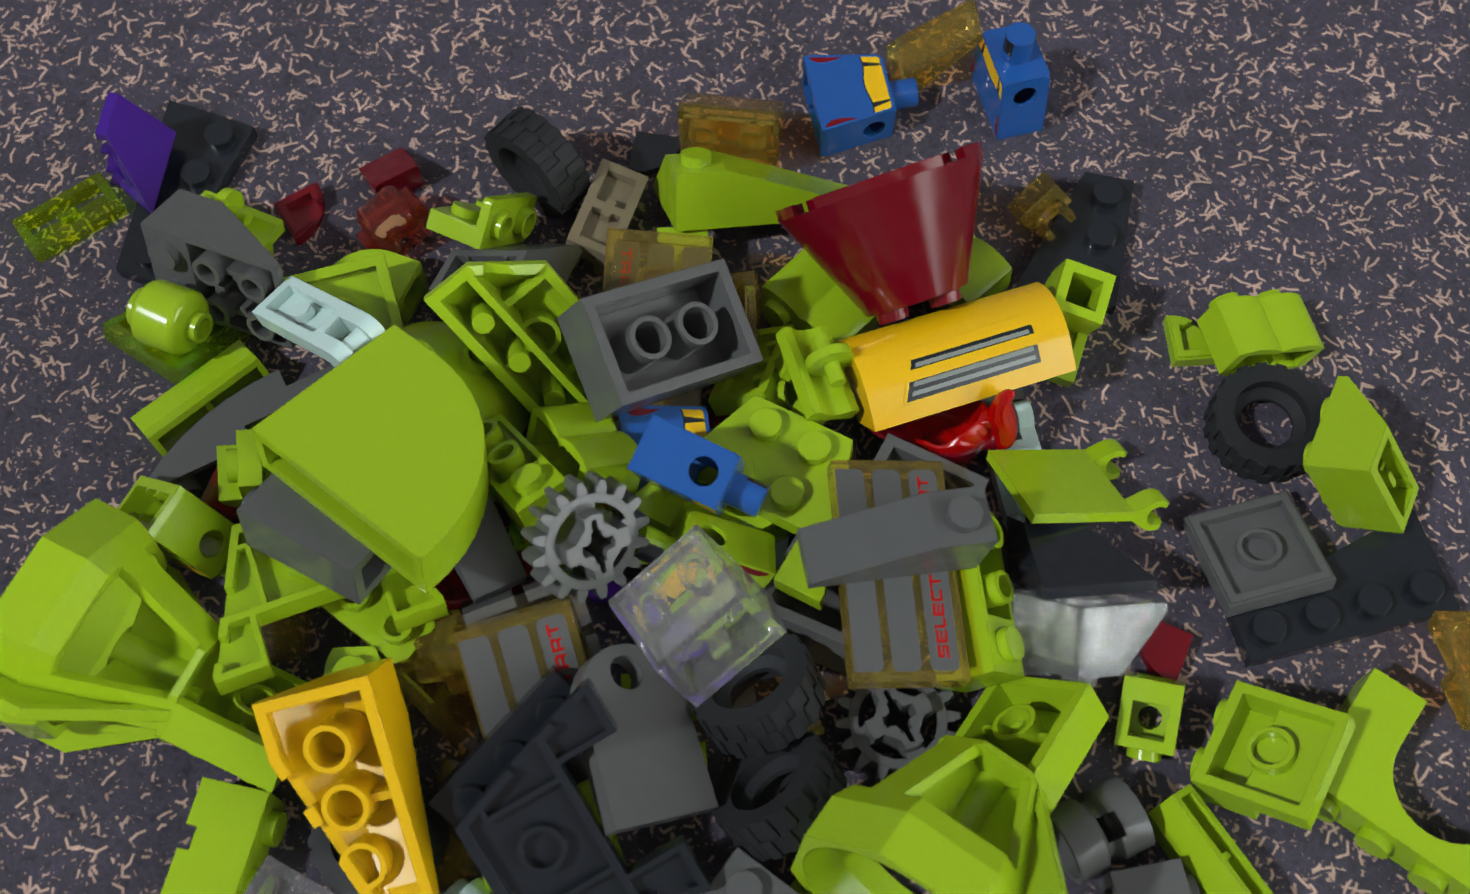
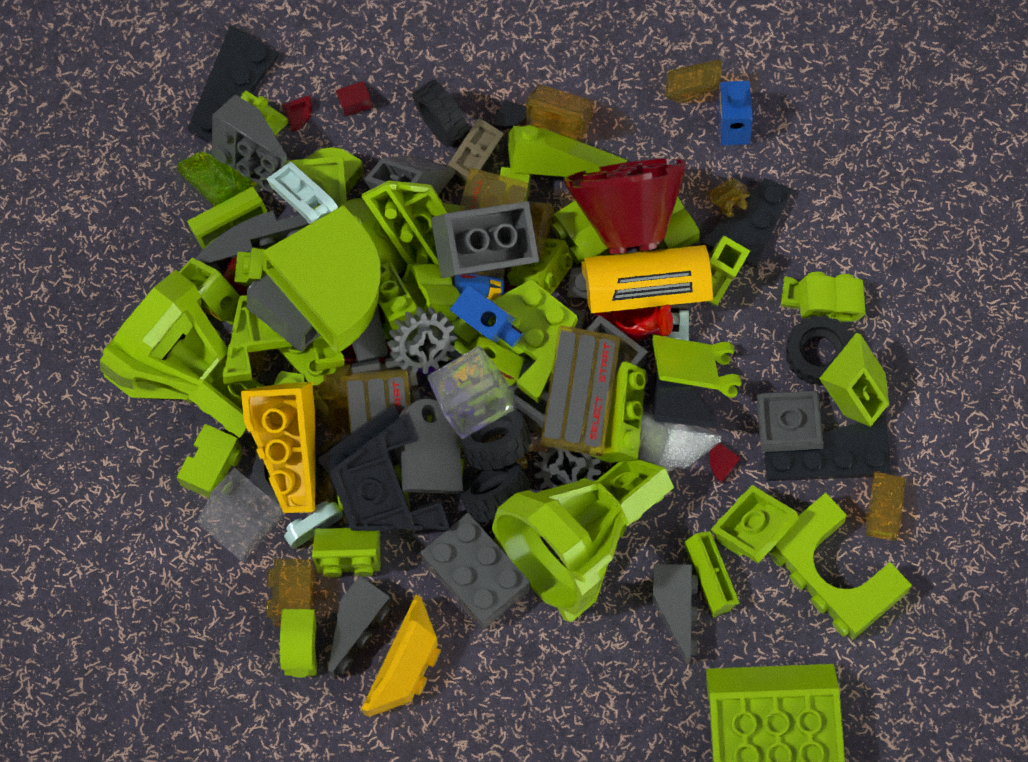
camera: 15 degrees right, 5 degrees up
(72, 223) = (167, 98): clear neon green tile -> none
(135, 147) = (209, 60): dark purple slope -> none
(169, 317) = (218, 169): lime head -> none
(393, 220) = (350, 130): clear red head -> none
(488, 222) = (404, 143): lime bracket -> none
(817, 373) = (567, 274): lime hips -> none
(852, 100) = (638, 105): blue torso -> none
(900, 539) = (583, 374): dark grey slope -> none
(1082, 842) = (645, 548): dark grey wheel -> none
(1155, 691) = (690, 495): lime brick -> none

